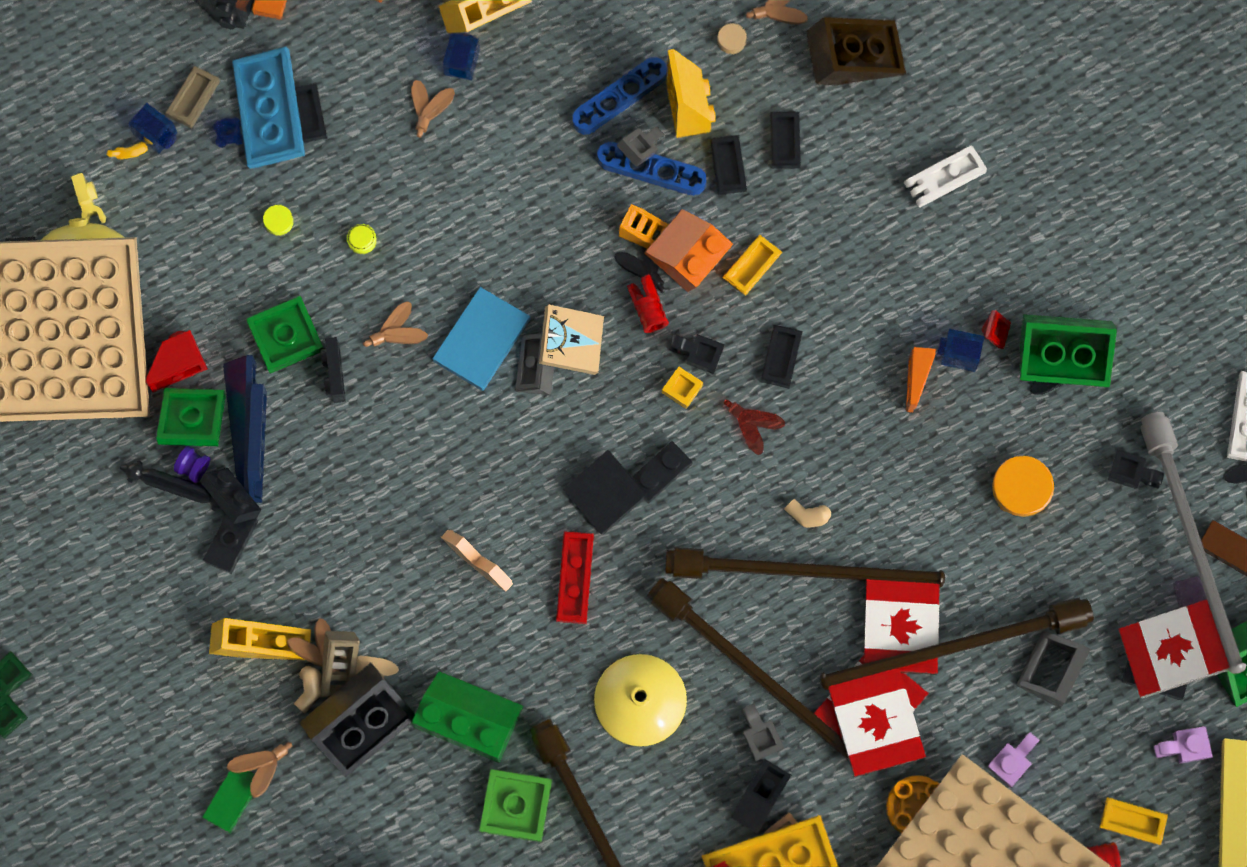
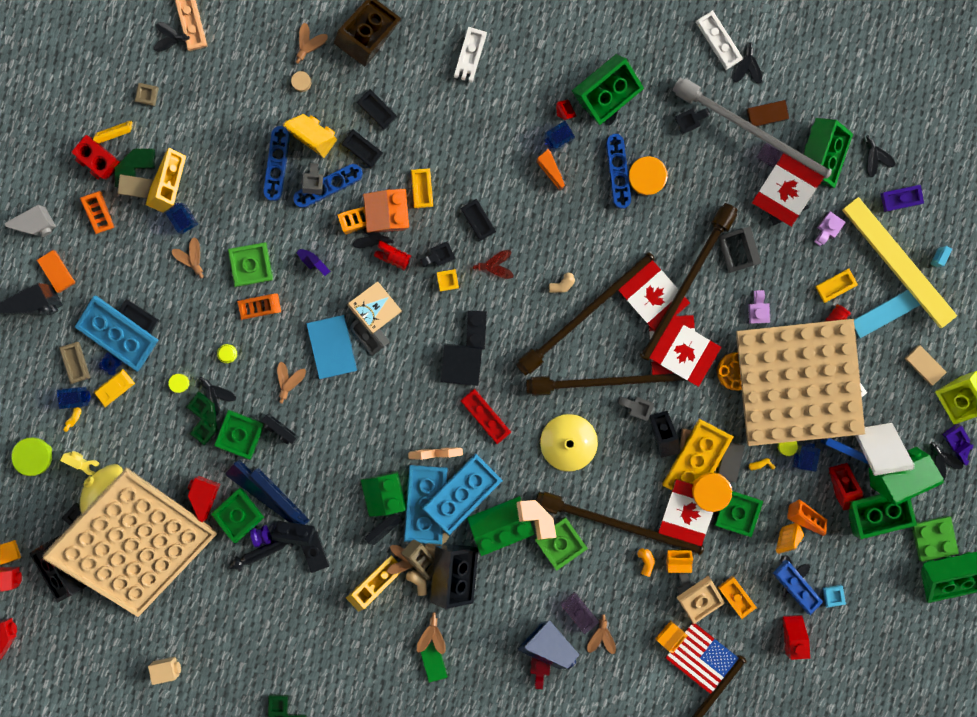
camera: 45 degrees left, 15 degrees up
(44, 147) = (31, 456): none -> lime tile
(204, 161) = (113, 388): none -> yellow tile
(260, 292) = (205, 410): none -> dark green tile
(302, 265) = (213, 392): none -> black piece
(333, 589) = (383, 529): none -> black tile
(373, 551) = (383, 494): none -> green slope
(408, 609) = (422, 486): none -> dark azure tile
(460, 636) = (462, 494): none -> dark azure tile
(463, 232) = (274, 304): none -> orange slope
(484, 171) = (250, 264): none -> bright green tile
(521, 755) = (535, 512): none -> light nougat tile
(554, 228) = (312, 260): none -> dark purple slope
(992, 450) = (618, 171): none -> blue beam

